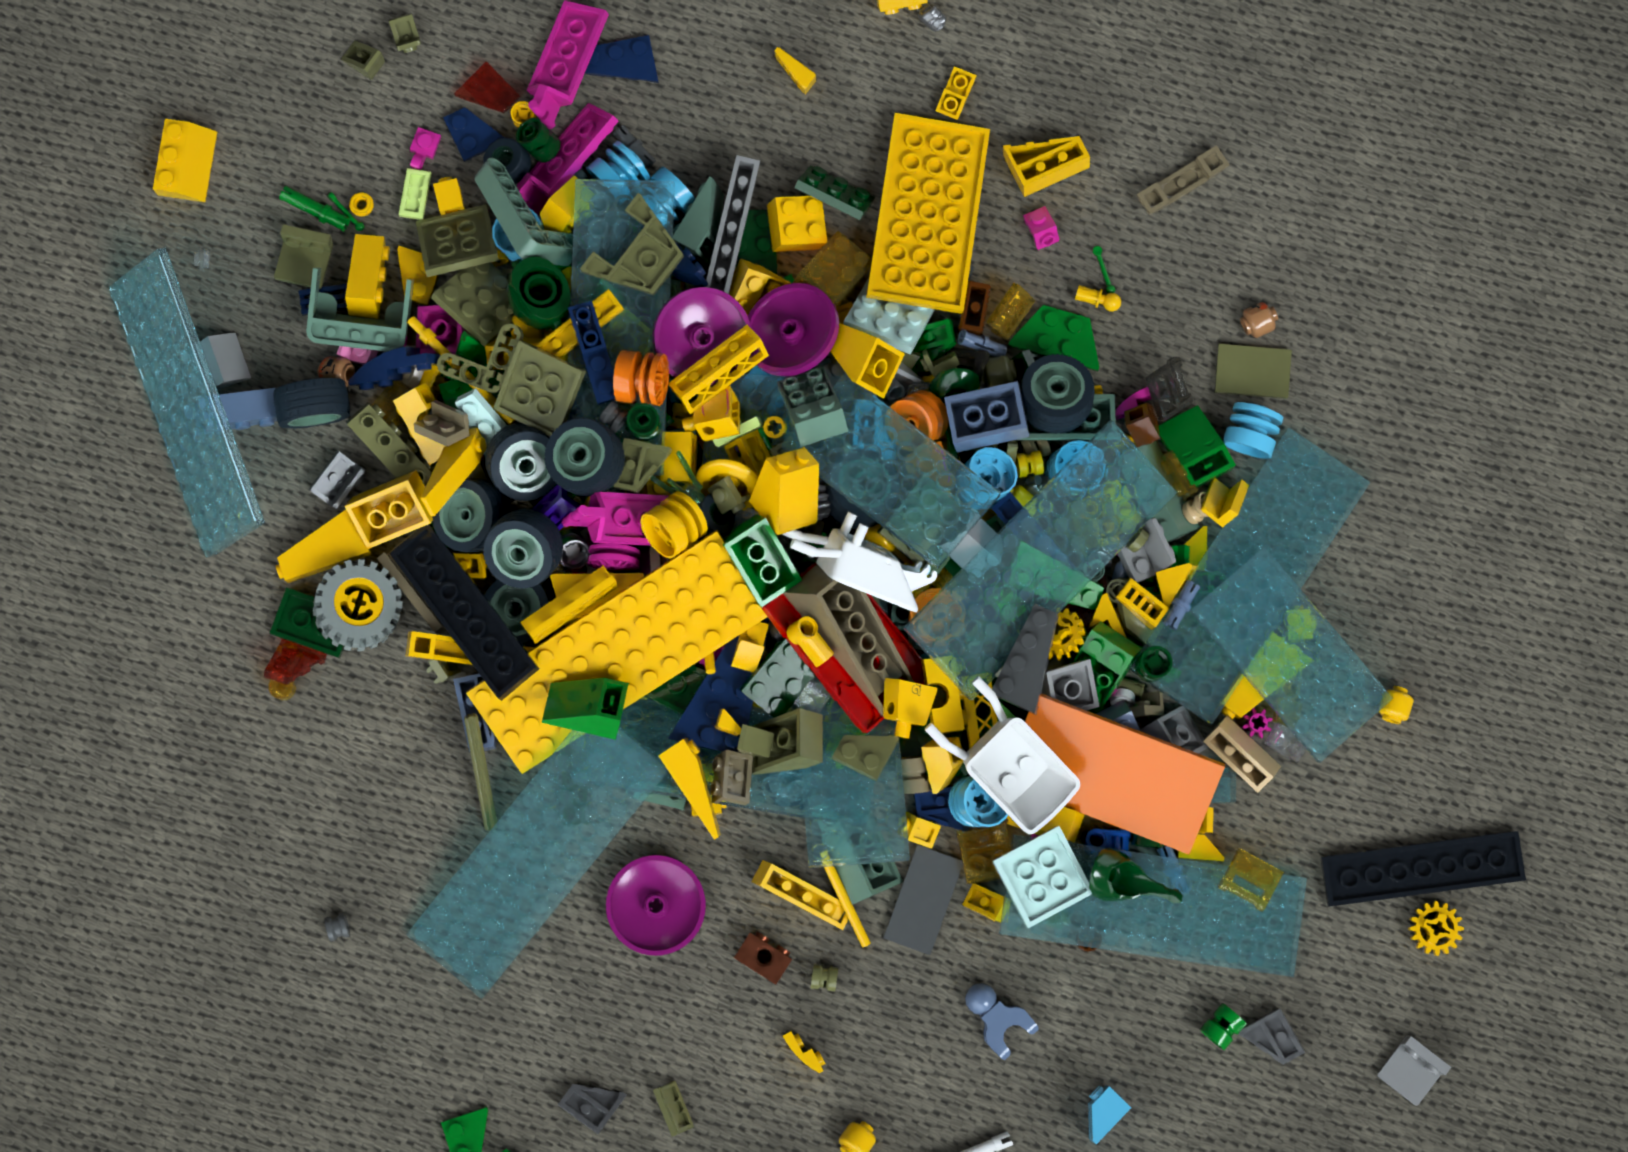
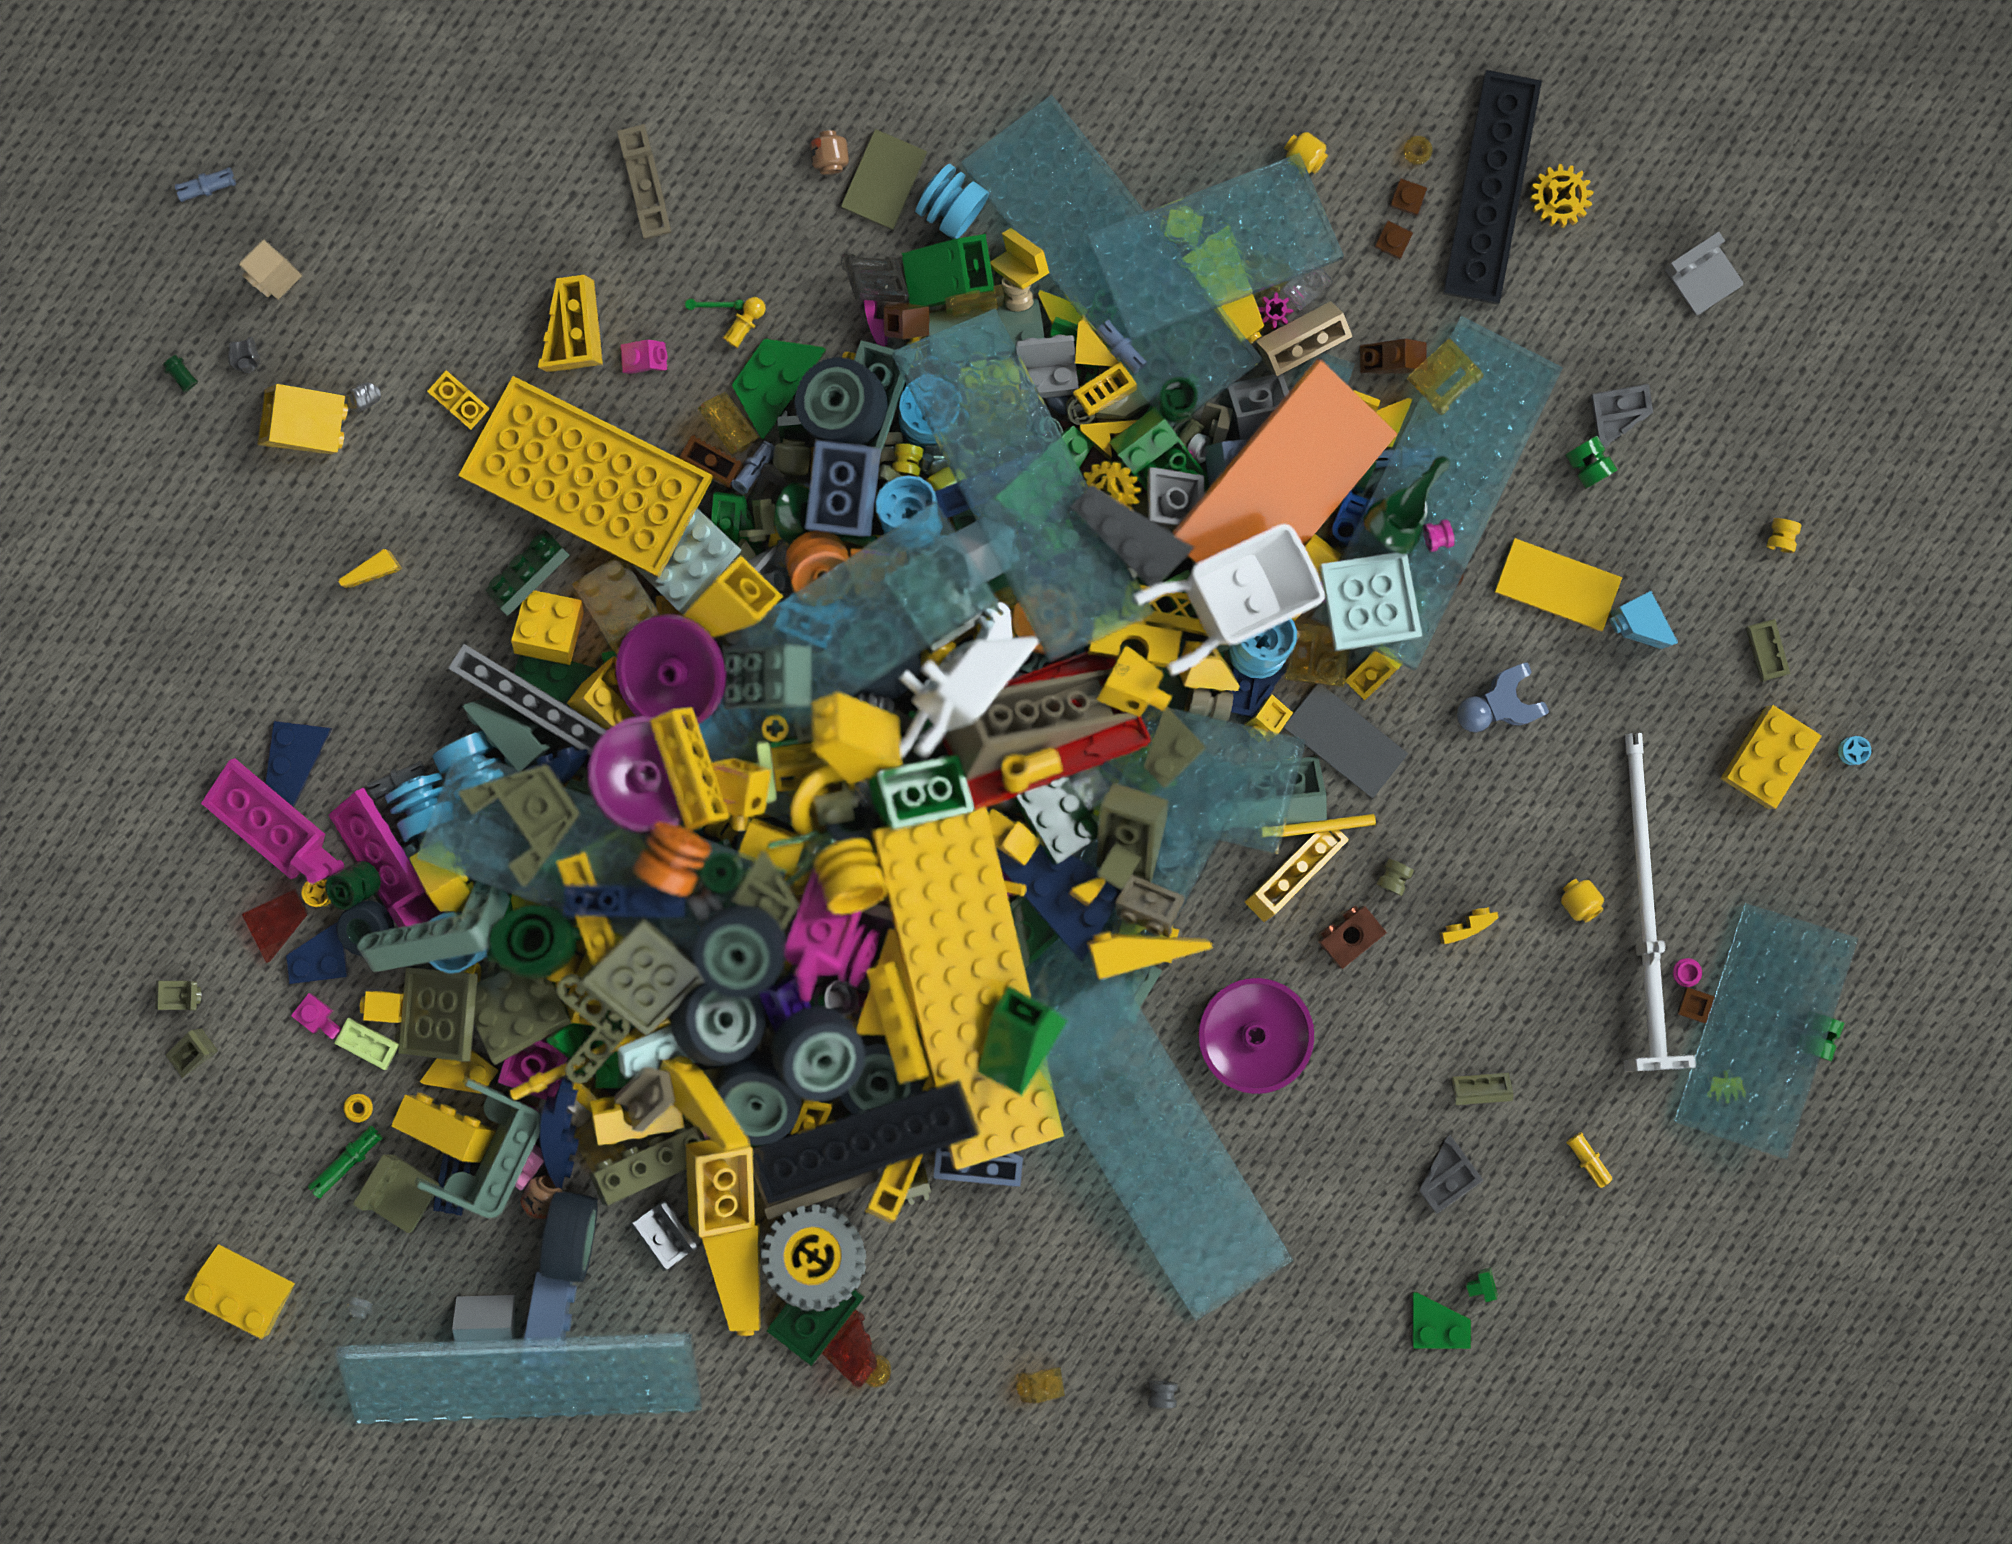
camera: 70 degrees left, 5 degrees up
(312, 825) = (1040, 1385): none -> clear yellow bracket
(359, 226) = (381, 1118): green hinge -> none
(480, 770) = (1045, 1180): olive axle -> none
(1112, 1034) = (1558, 584): none -> yellow tile
(1116, 915) = (1438, 535): none -> dark pink wheel
(1138, 541) = (1035, 369): olive tile -> none
(1253, 832) = (1392, 356): none -> reddish brown slope
(1350, 802) = (1393, 240): none -> reddish brown plate
(1391, 802) = (1408, 197): none -> reddish brown plate
(1439, 797) = (1424, 144): none -> clear yellow plate

